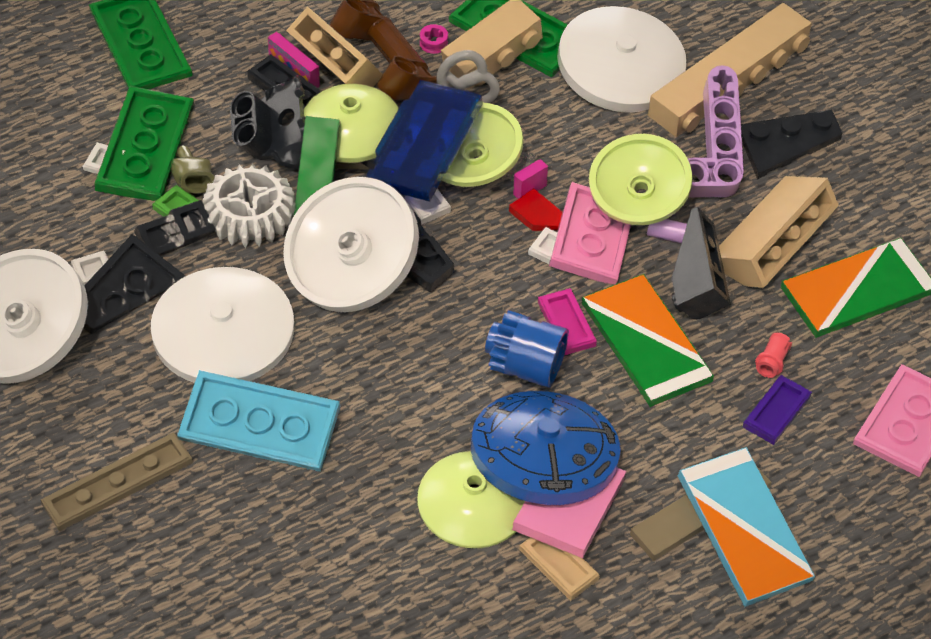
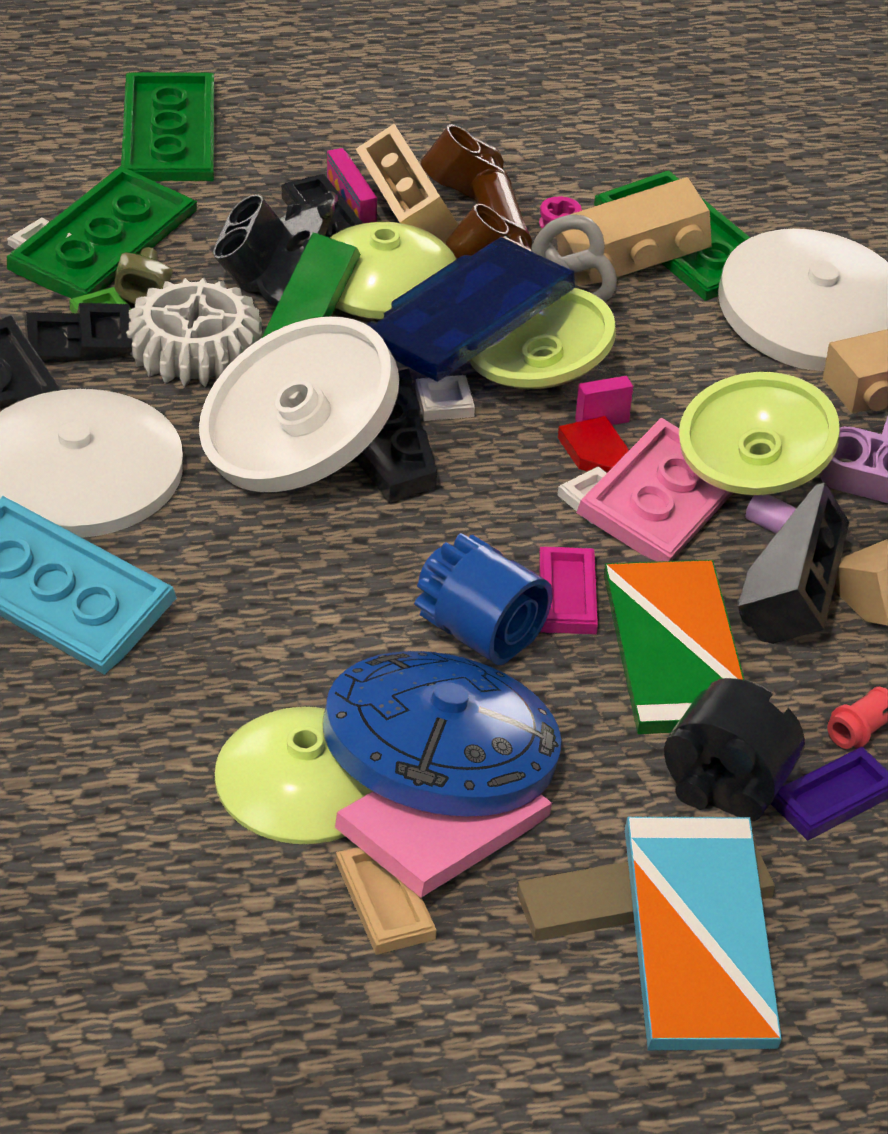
camera: 20 degrees right, 10 degrees down
(718, 405) = (733, 749): none -> black brick

